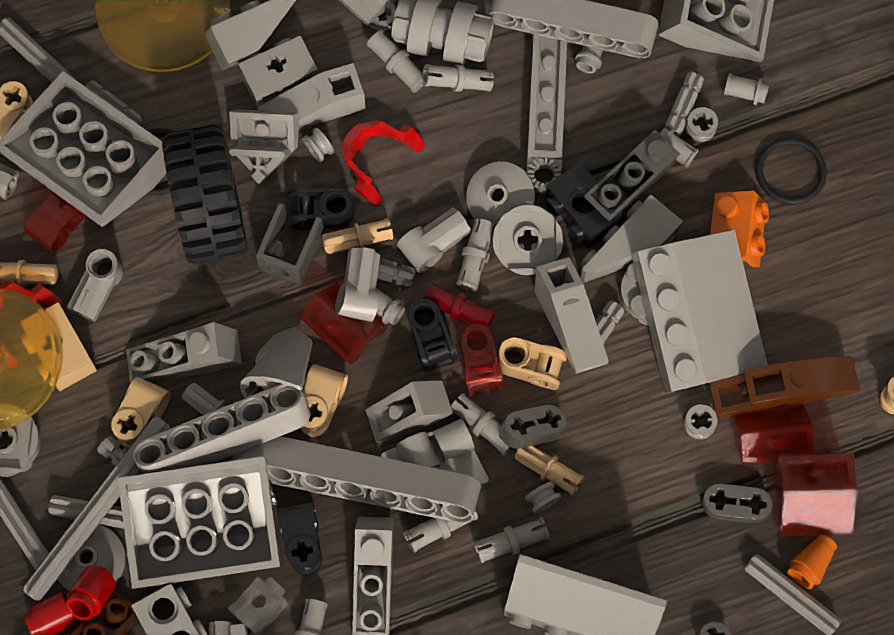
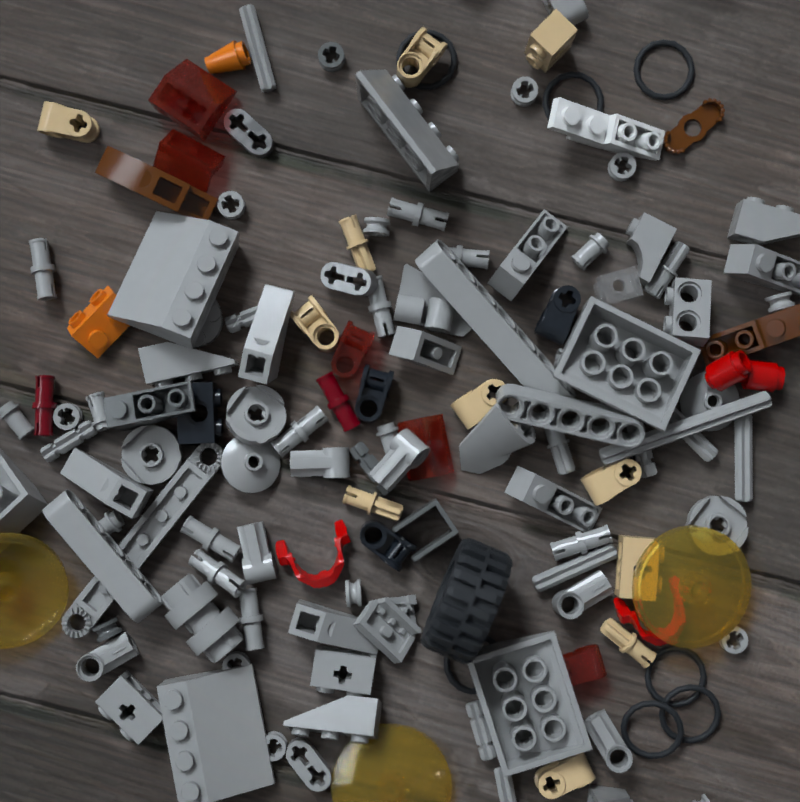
camera: 145 degrees left, 15 degrees up
(120, 309) = (574, 567): none -> light grey axle
(129, 334) = (581, 542): none -> light grey pin
(428, 114) = (258, 560): none -> light grey piece
(487, 105) = (210, 538): none -> light grey pin
(589, 125) = (134, 454): none -> light grey plate
(618, 87) = (106, 483): none -> light grey slope
(730, 118) = (44, 405): none -> dark red pin
(797, 142) = (15, 316): black piece -> none
(830, 237) = (42, 269): none -> light grey pin

